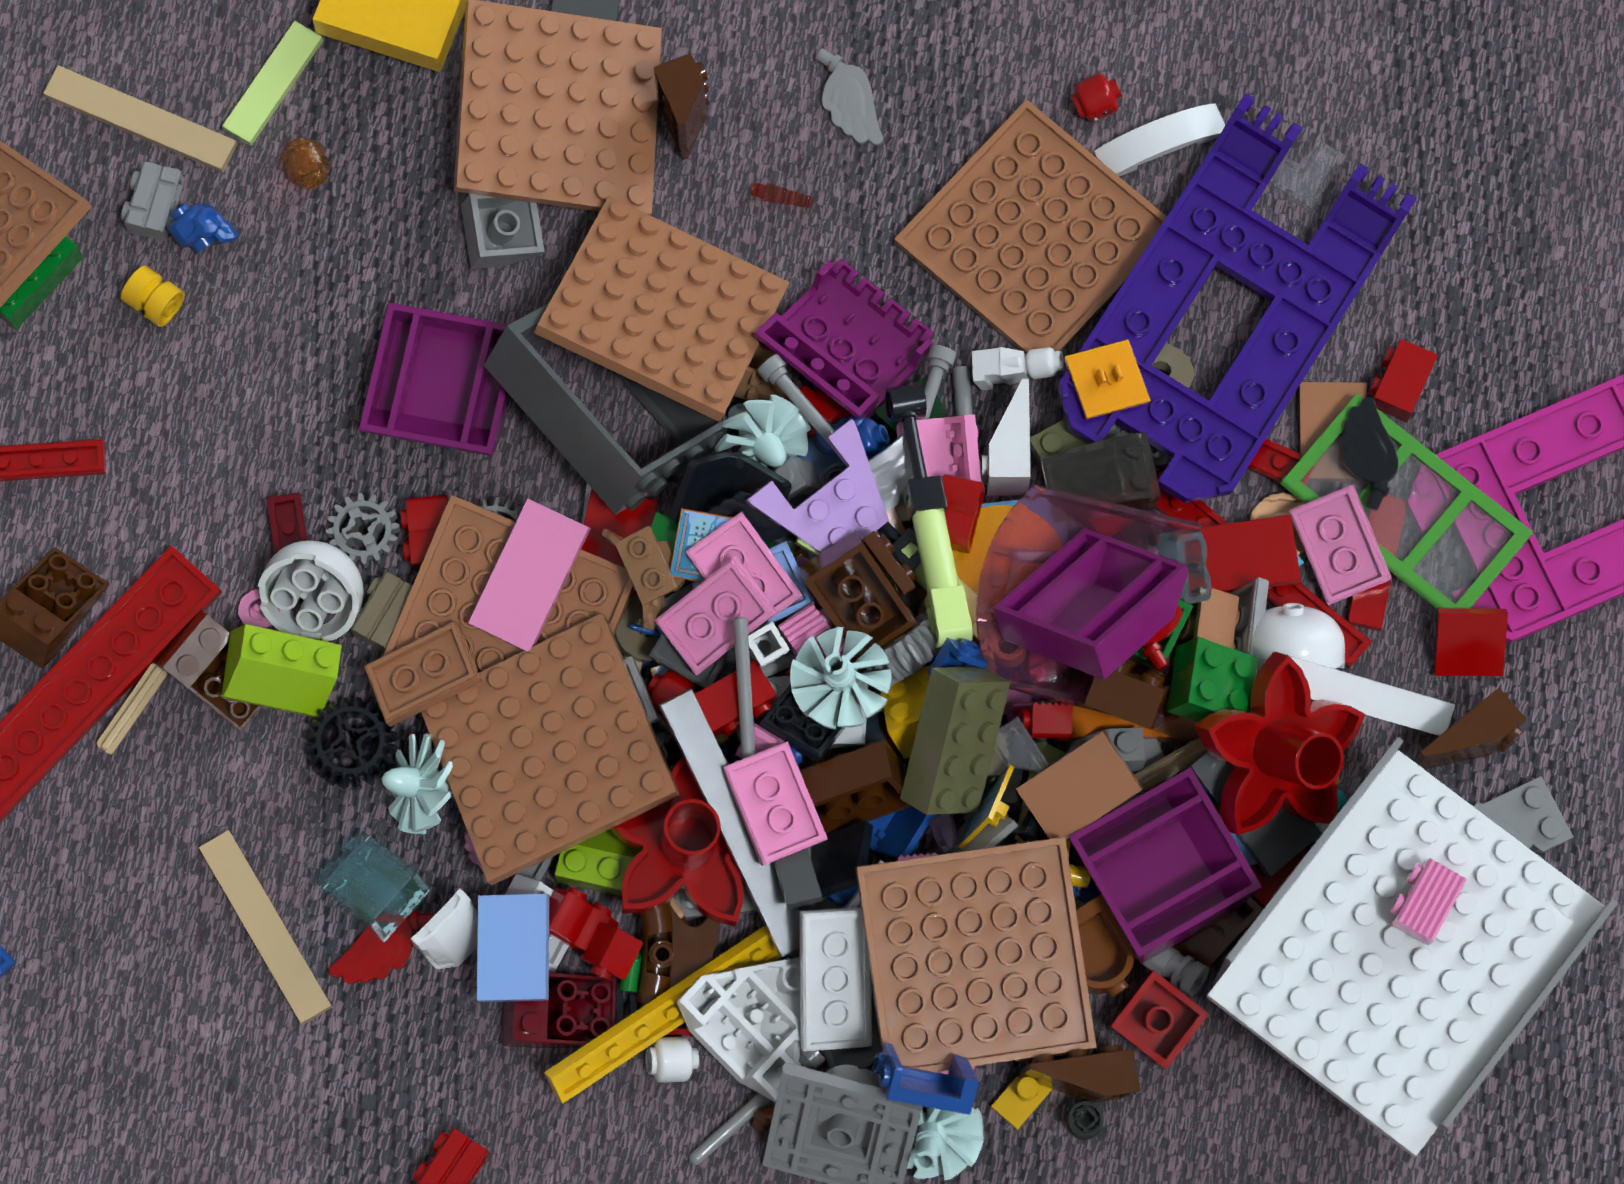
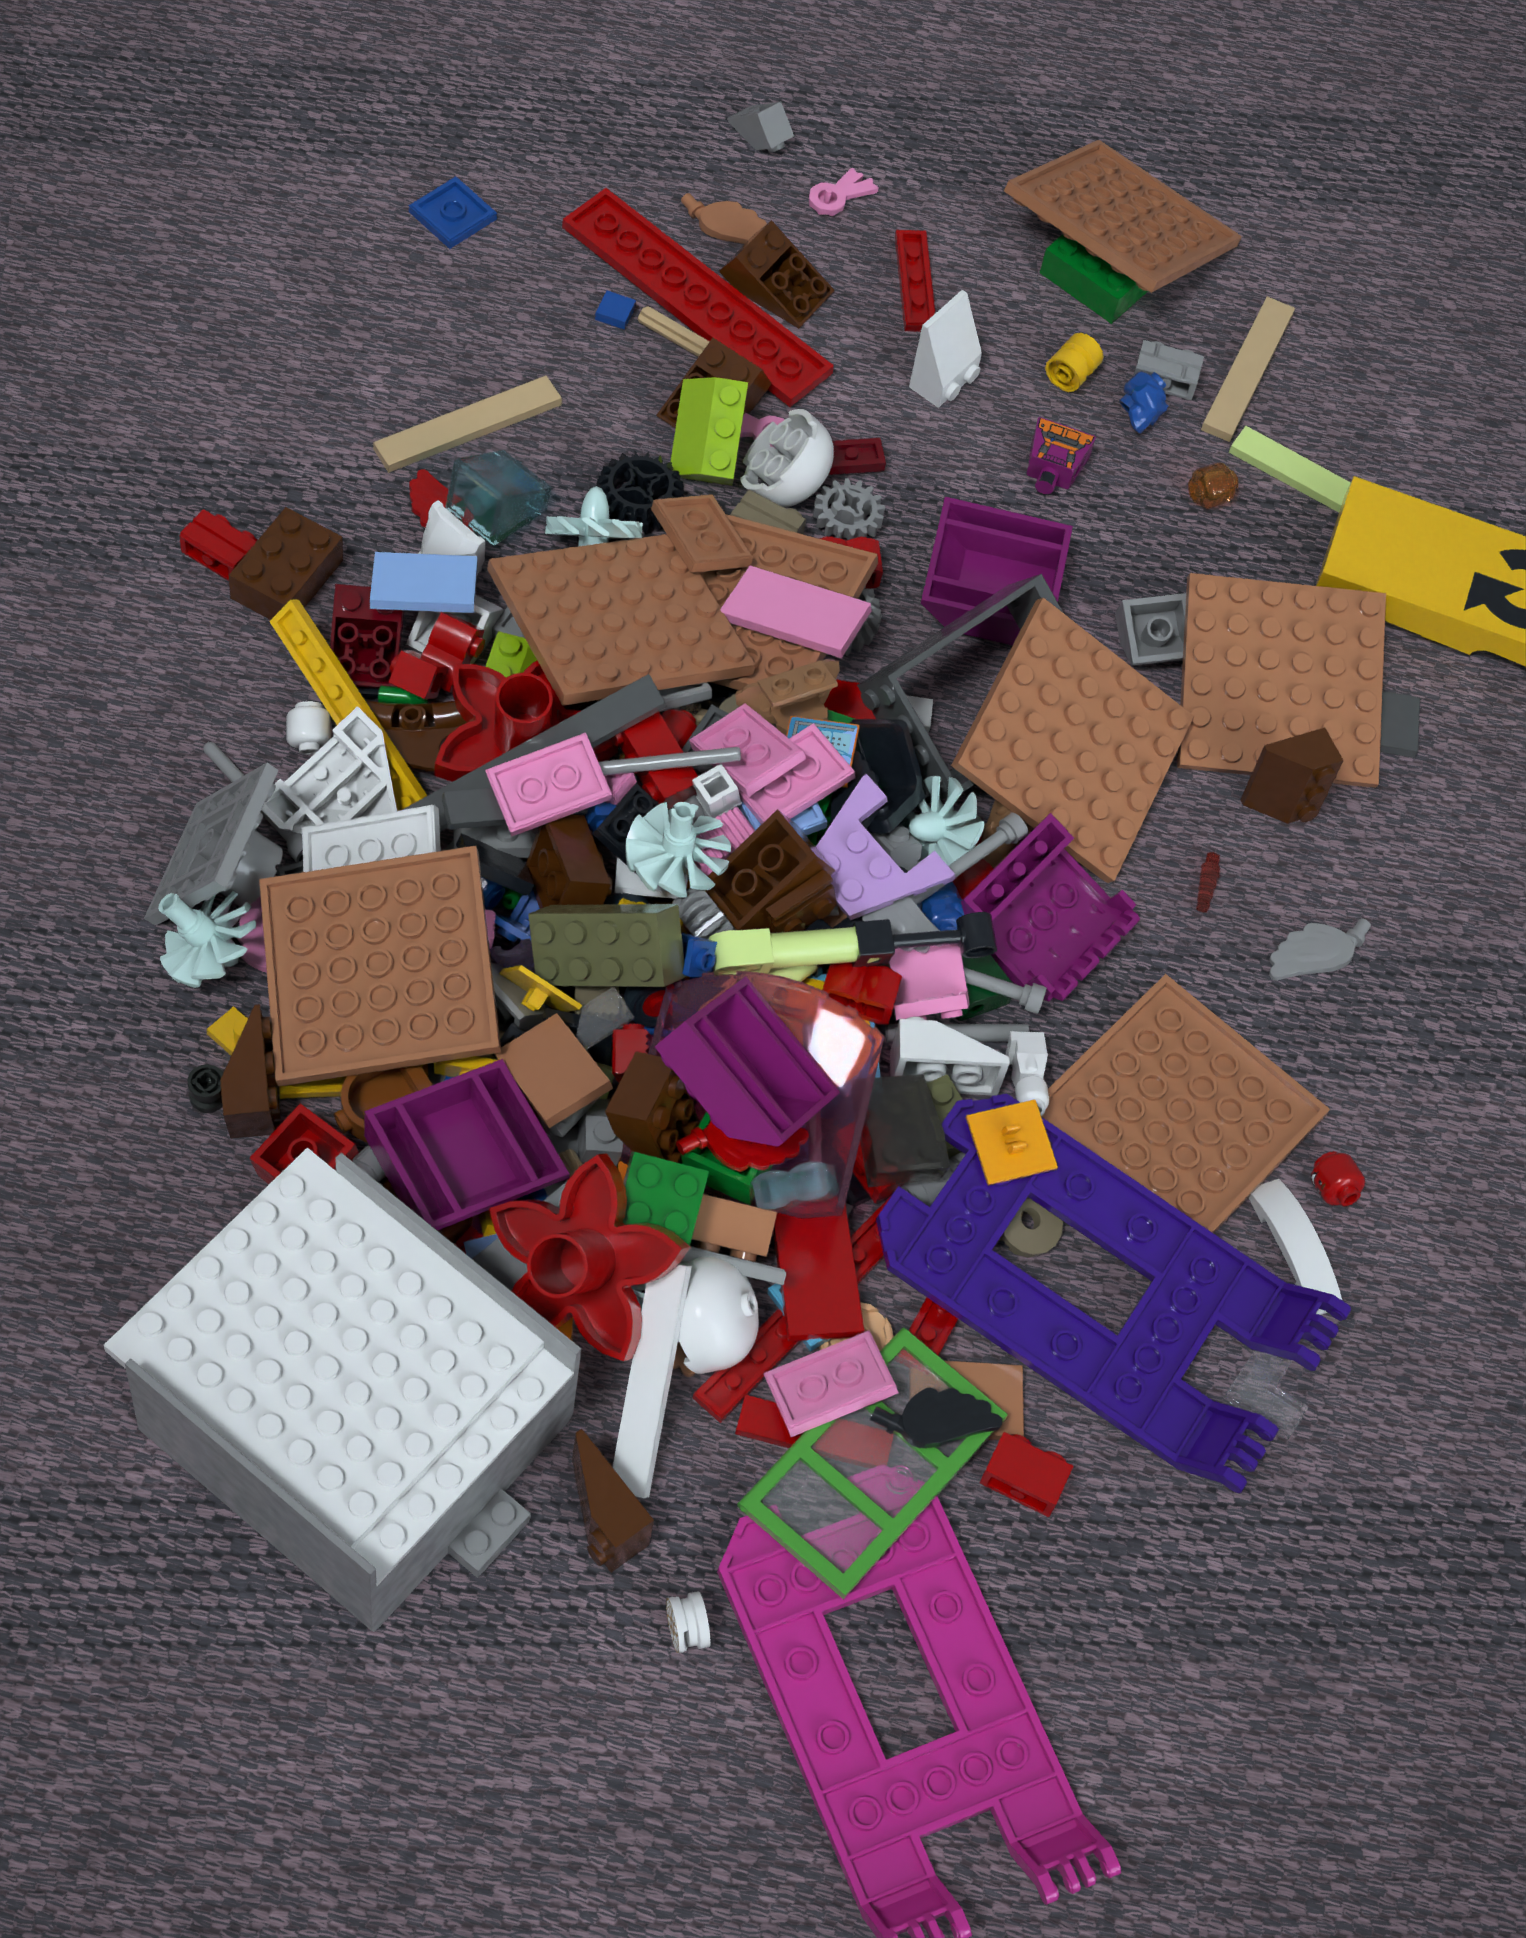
camera: 80 degrees right, 15 degrees down
(98, 778) = (615, 310): none -> blue tile
(164, 425) = (947, 352): none -> white slope
(277, 319) = (1057, 455): none -> torso
(476, 1098) = (286, 564): none -> reddish brown brick
(927, 1088) = (243, 893): blue panel -> none
(1427, 900) = (388, 1366): bright pink brick -> none
(1470, 642) = (716, 1517): red tile -> none
(1533, 814) = (513, 1578): light grey wing -> none
(1564, 663) = (688, 1622): none -> white wheel

